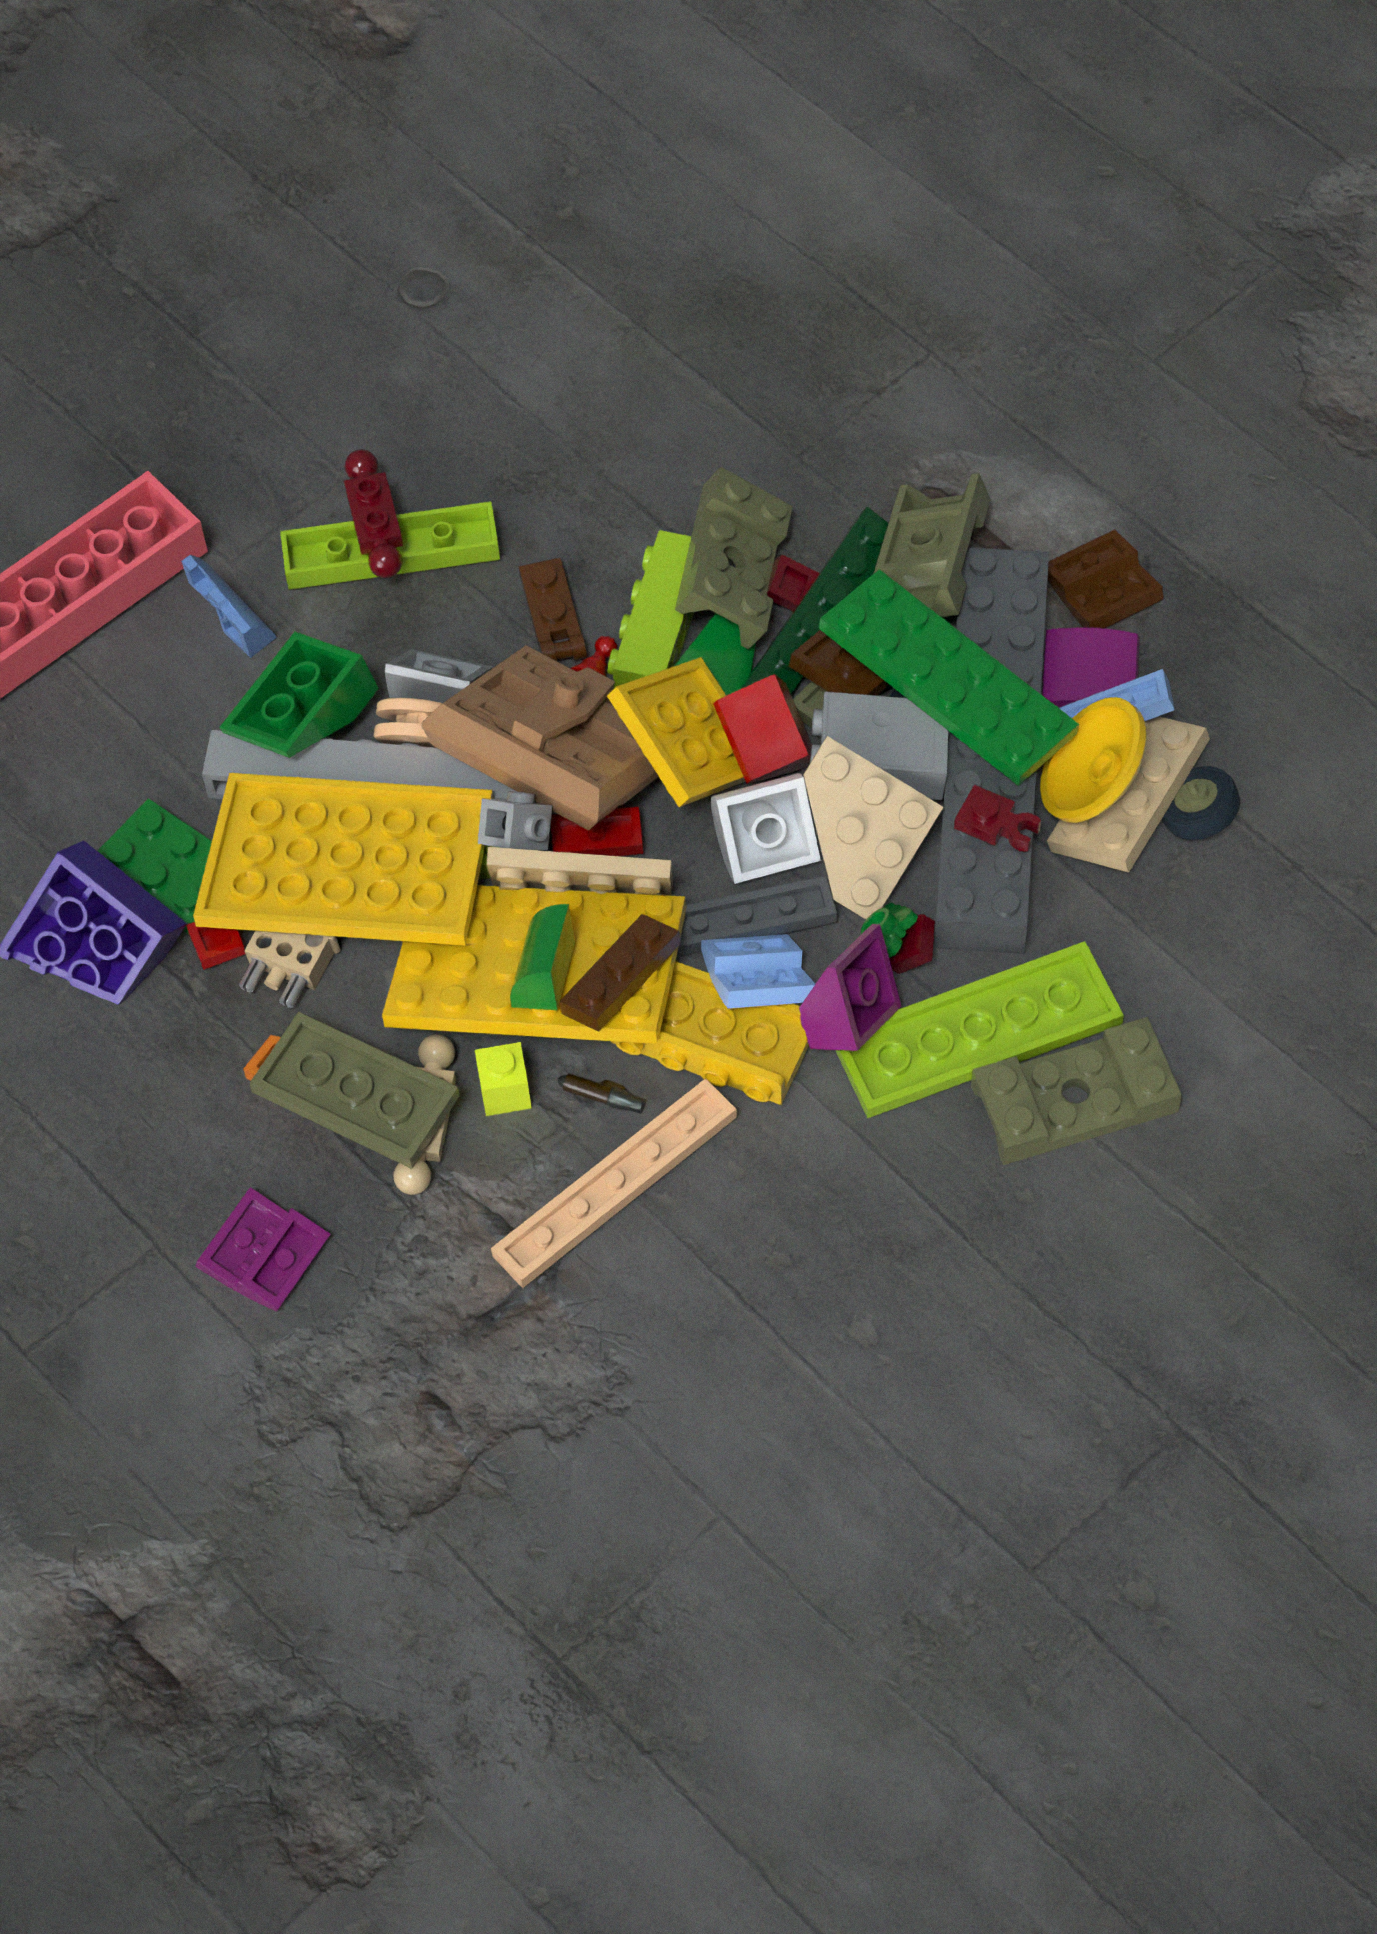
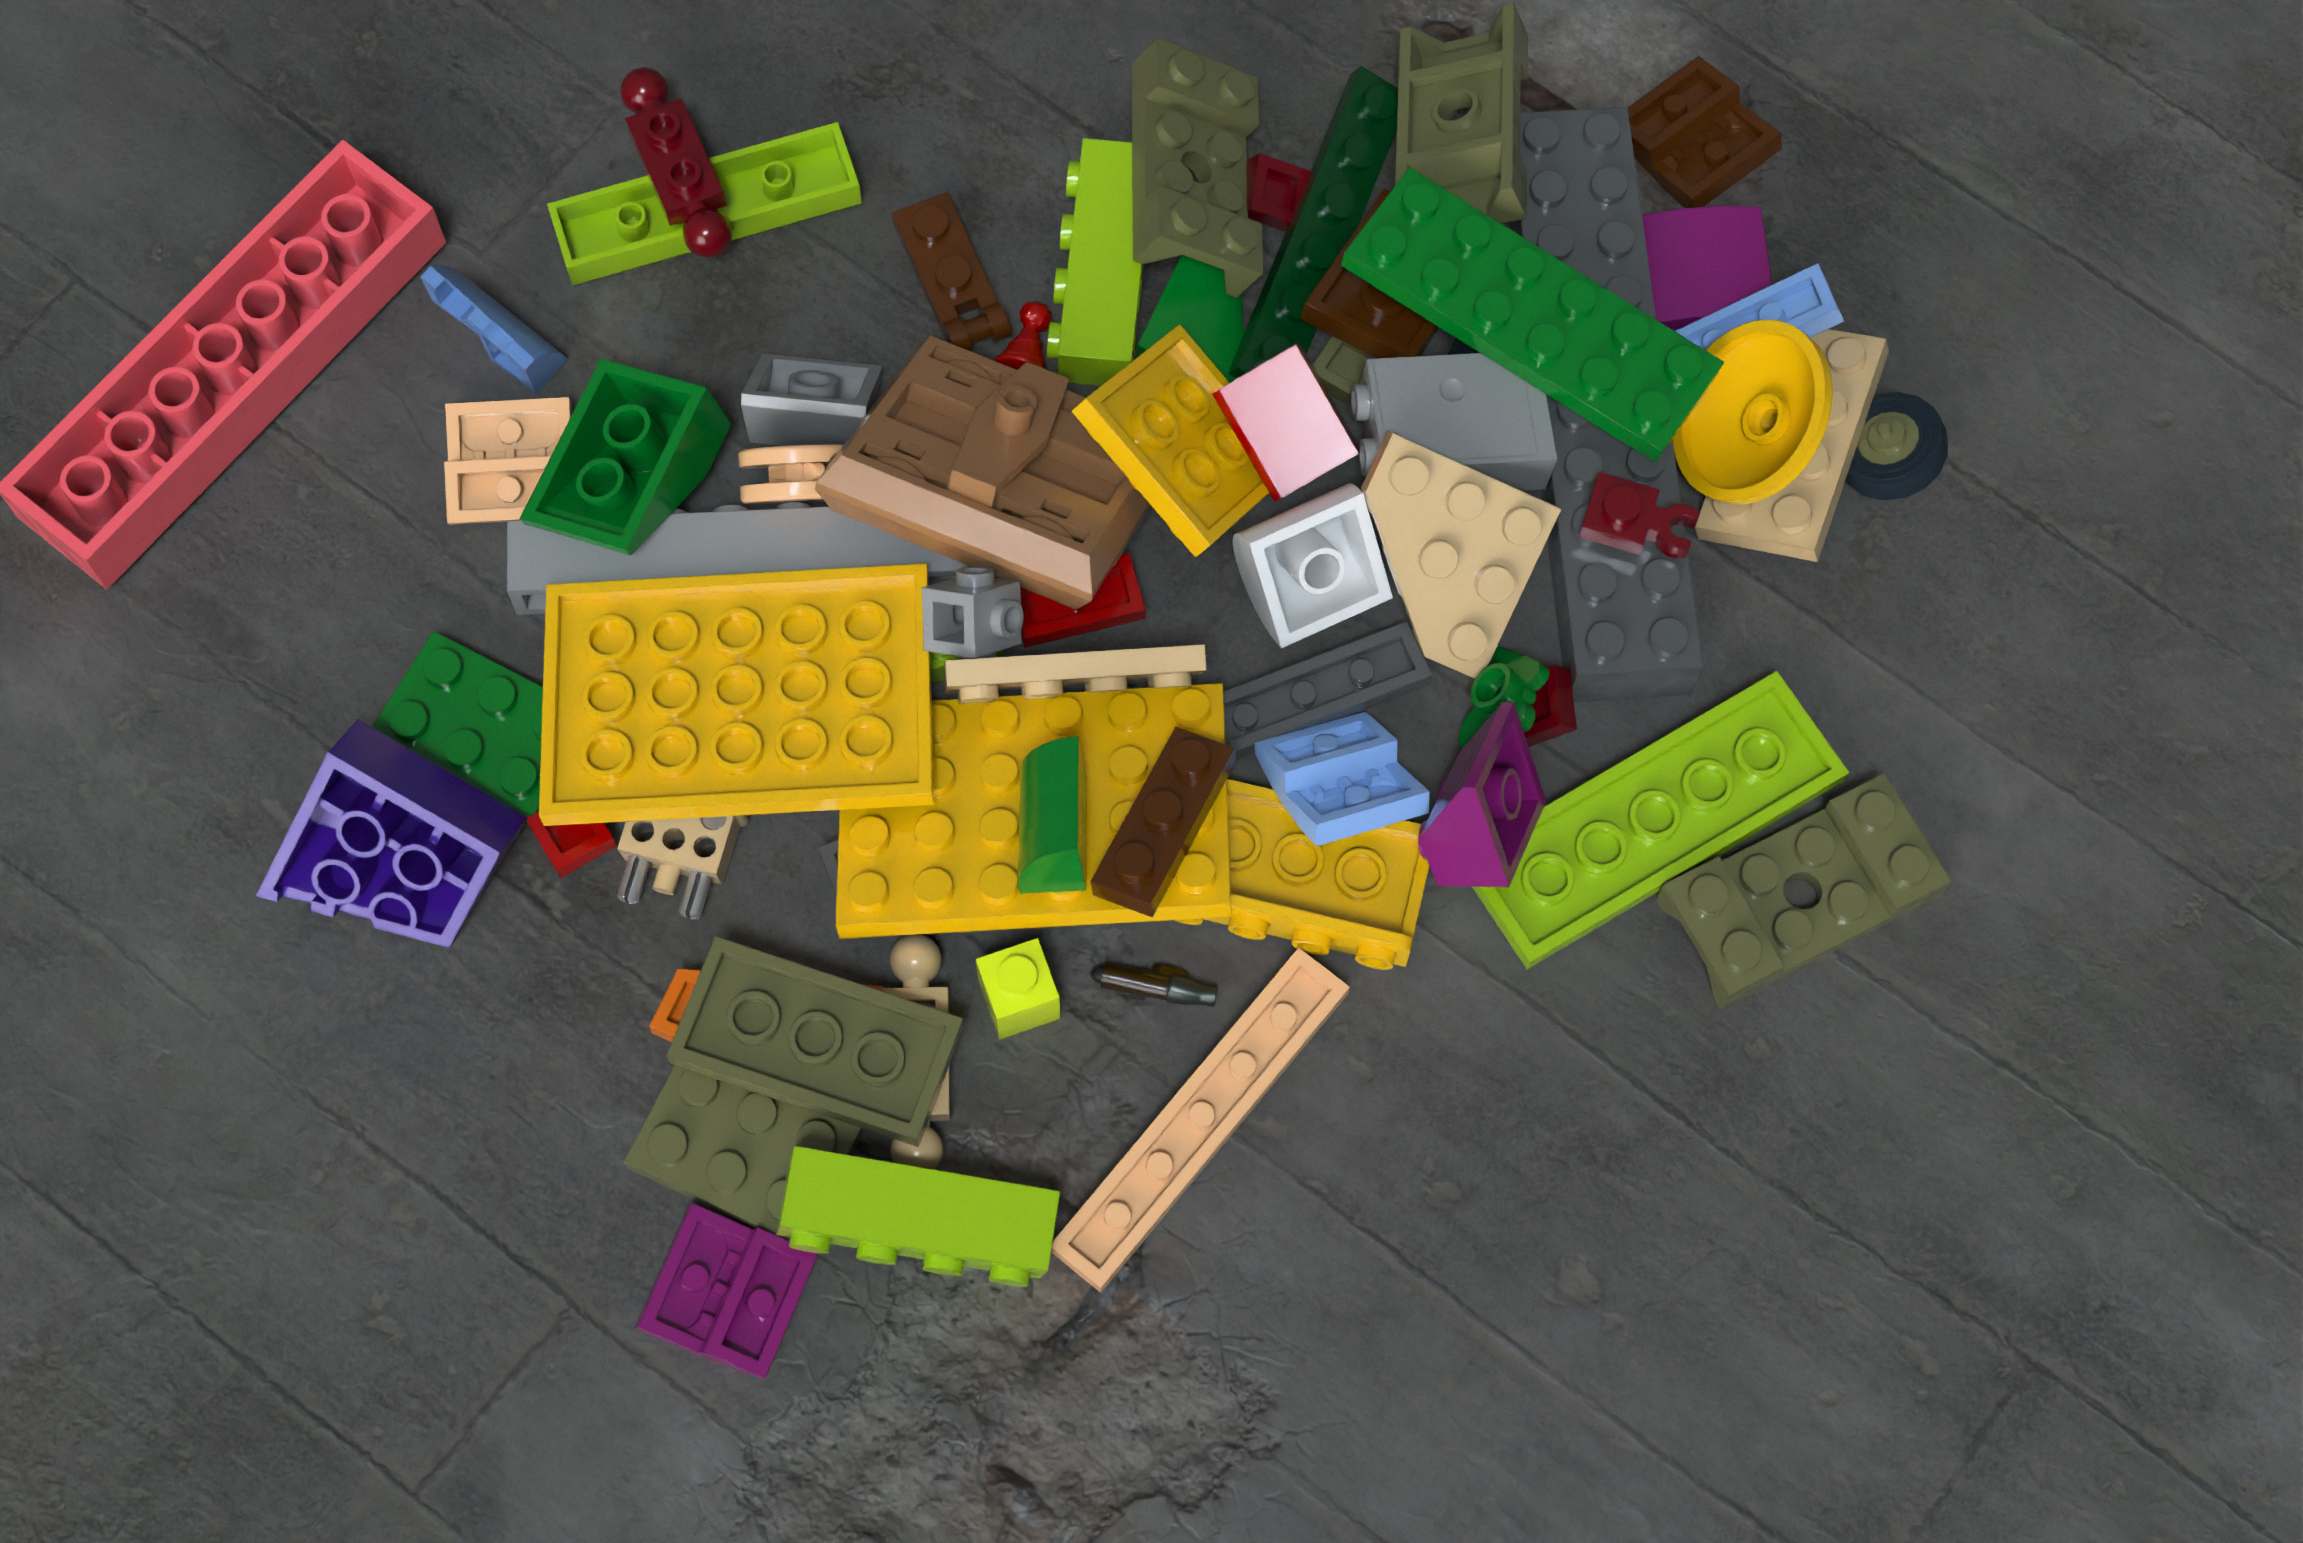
camera: 15 degrees left, 10 degrees up
(212, 690) = (498, 455): none -> light nougat slope
(293, 1161) = (729, 1145): none -> olive plate
(401, 1212) = (918, 1215): none -> lime brick

